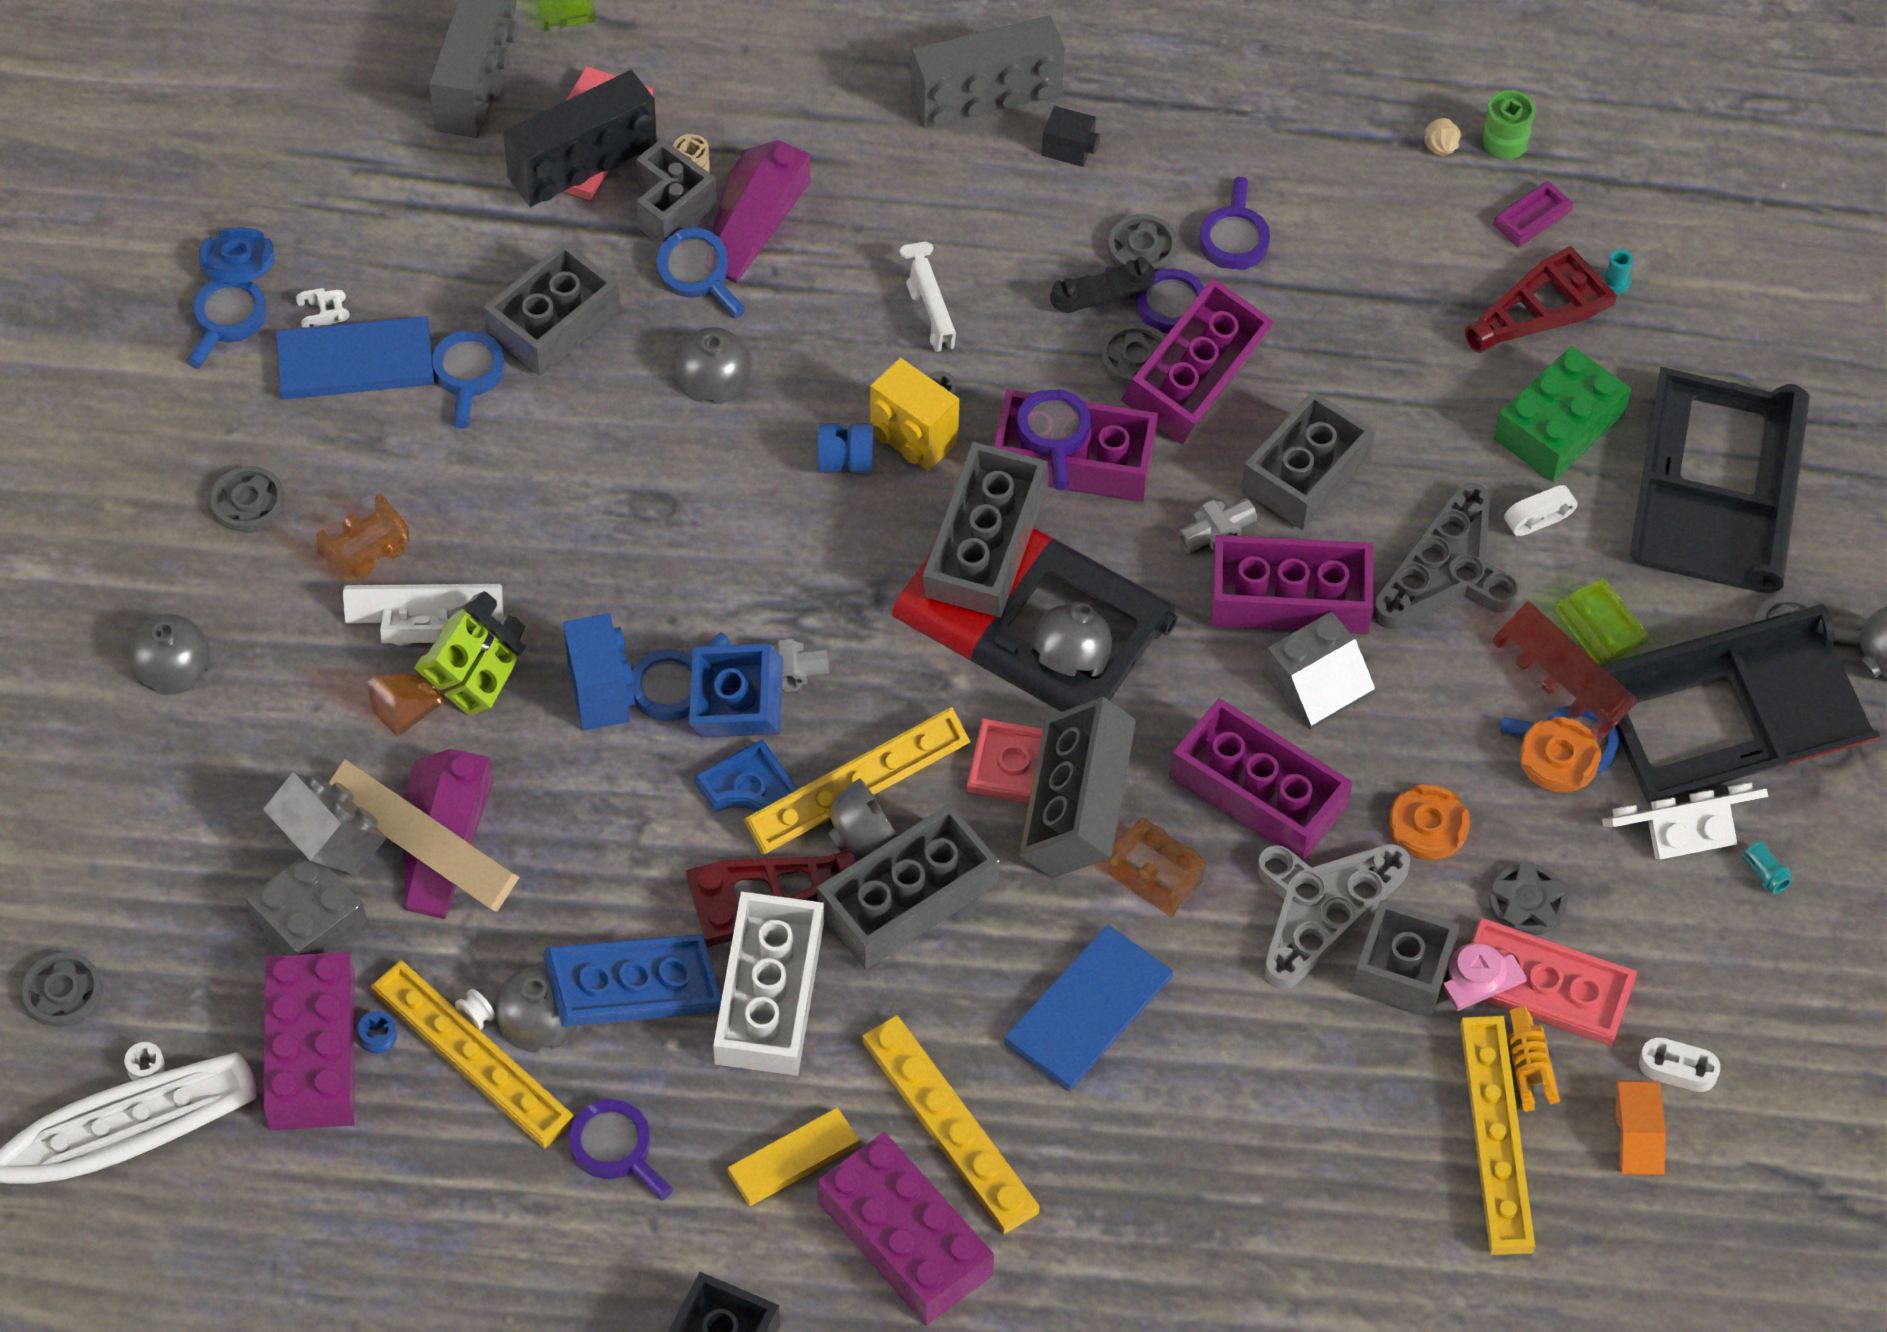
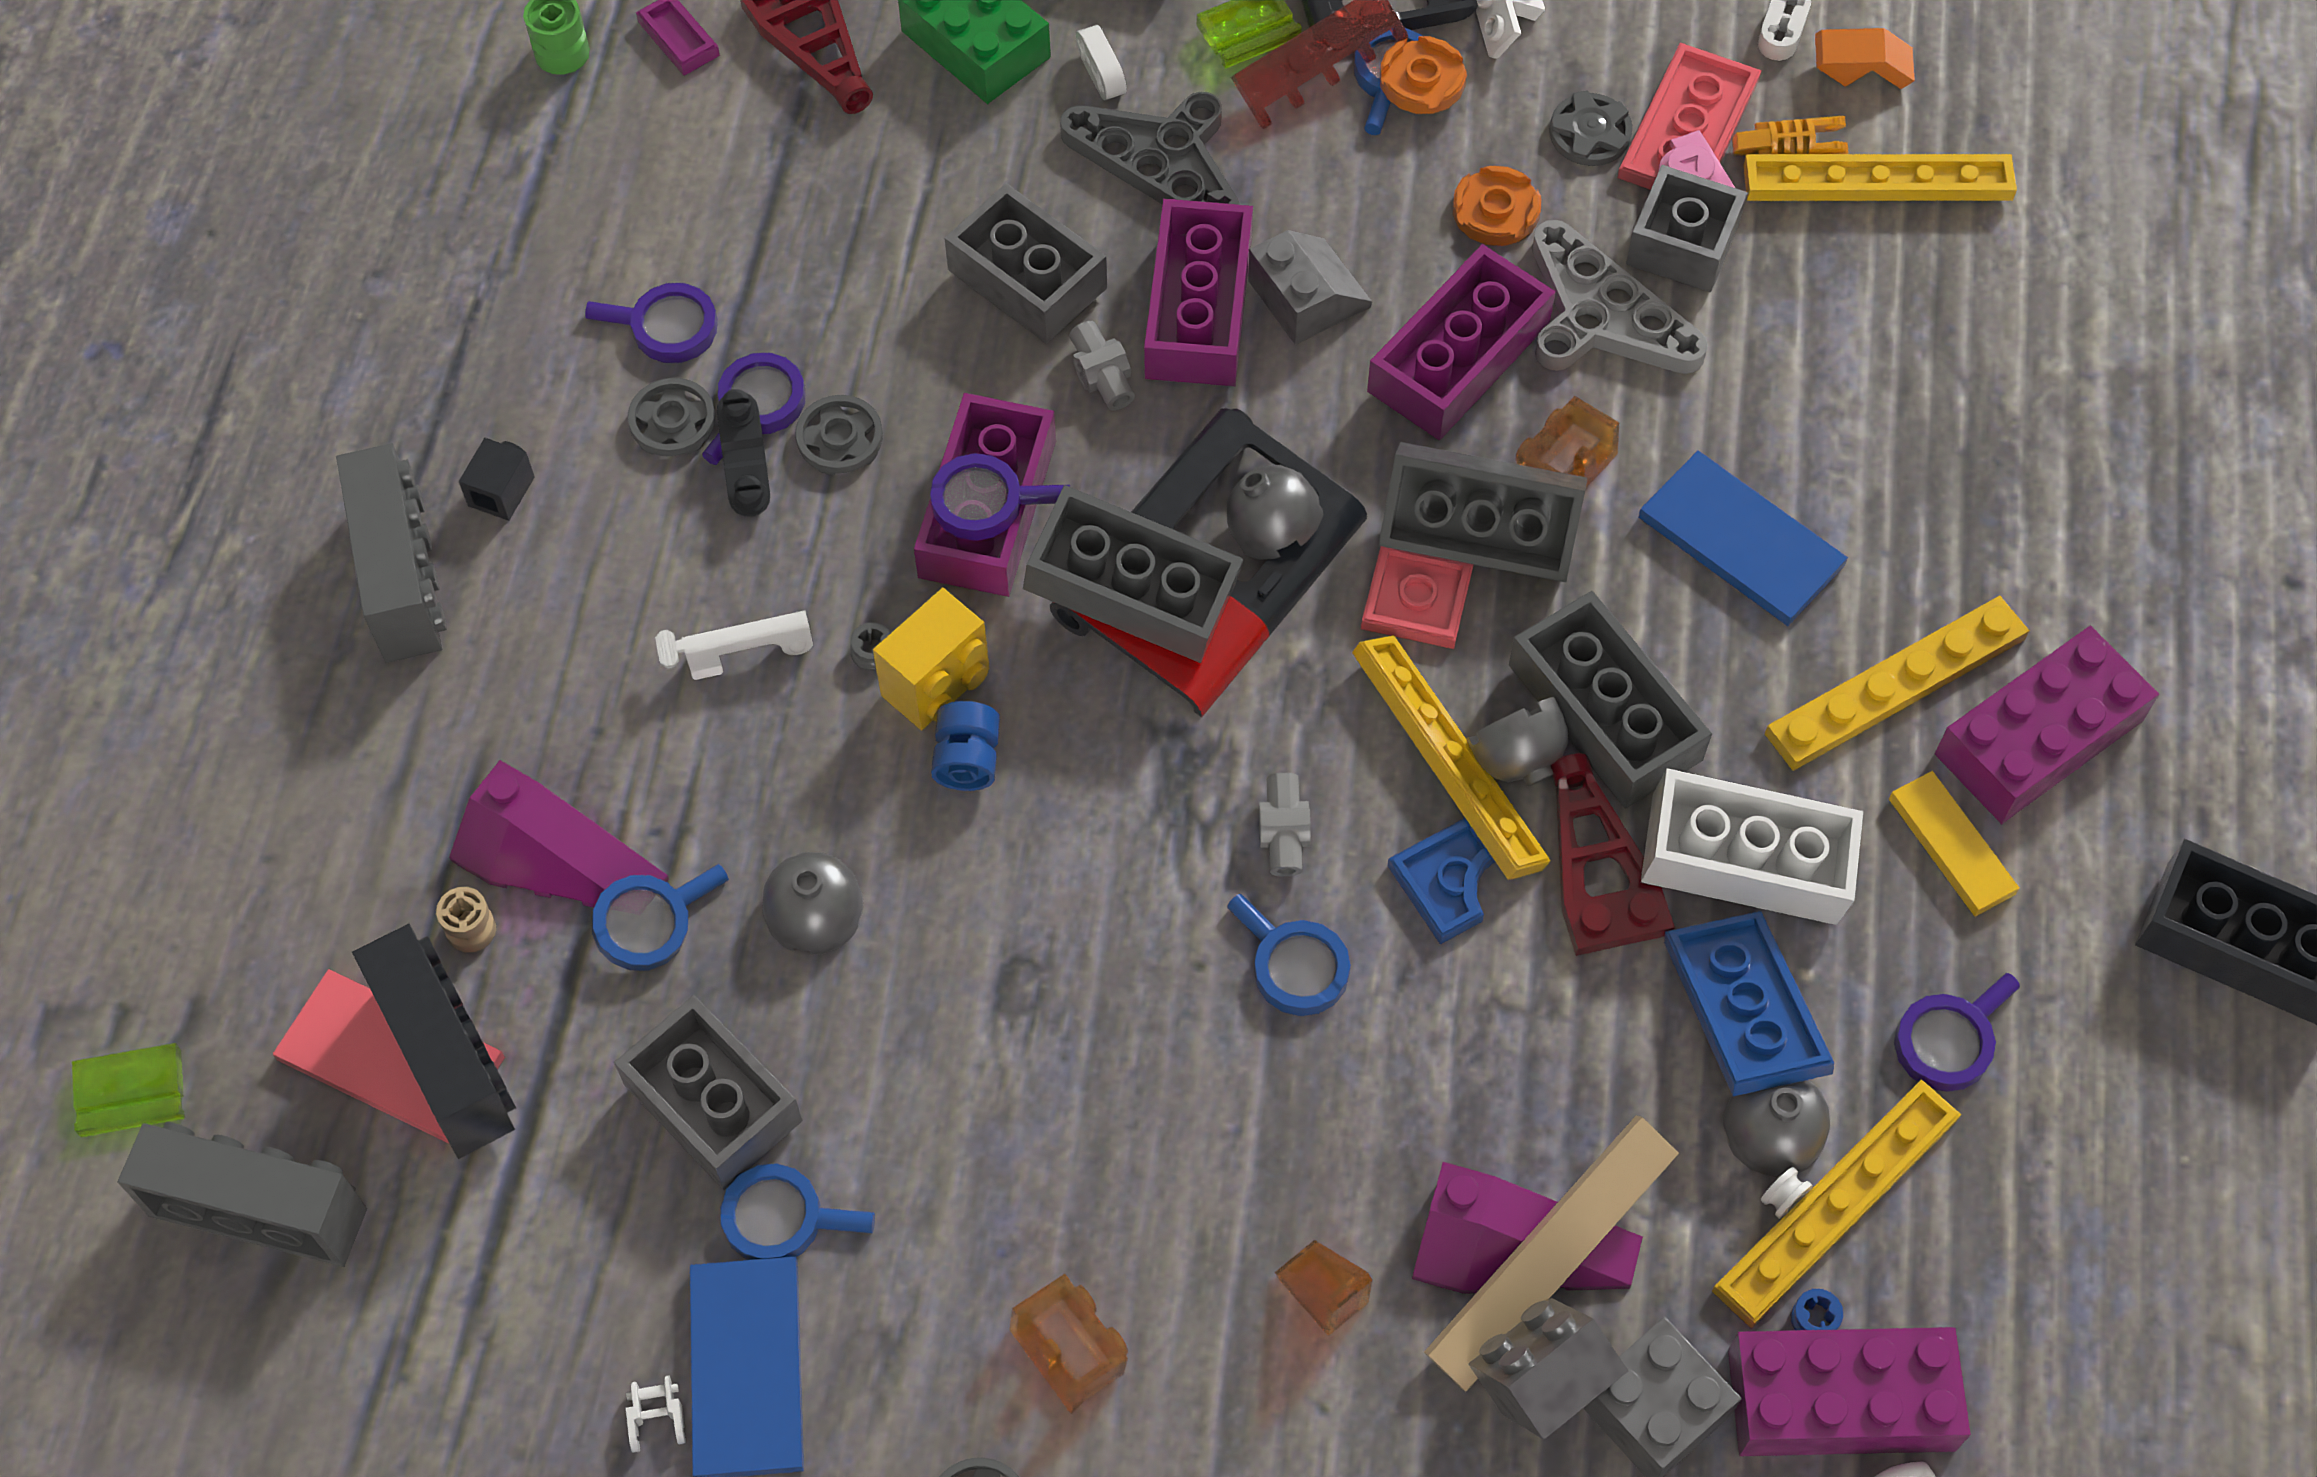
camera: 85 degrees left, 5 degrees up
(412, 611) = (1196, 1264): white bracket -> none
(473, 654) = (1273, 1185): lime hips -> none
(598, 671) = (1307, 1033): blue brick -> none
(674, 189) = (524, 928): flat silver brick -> none
(736, 690) = (1342, 870): blue brick -> none
(1198, 360) = (876, 356): magenta brick -> none
(1442, 137) = (560, 102): tan plate -> none

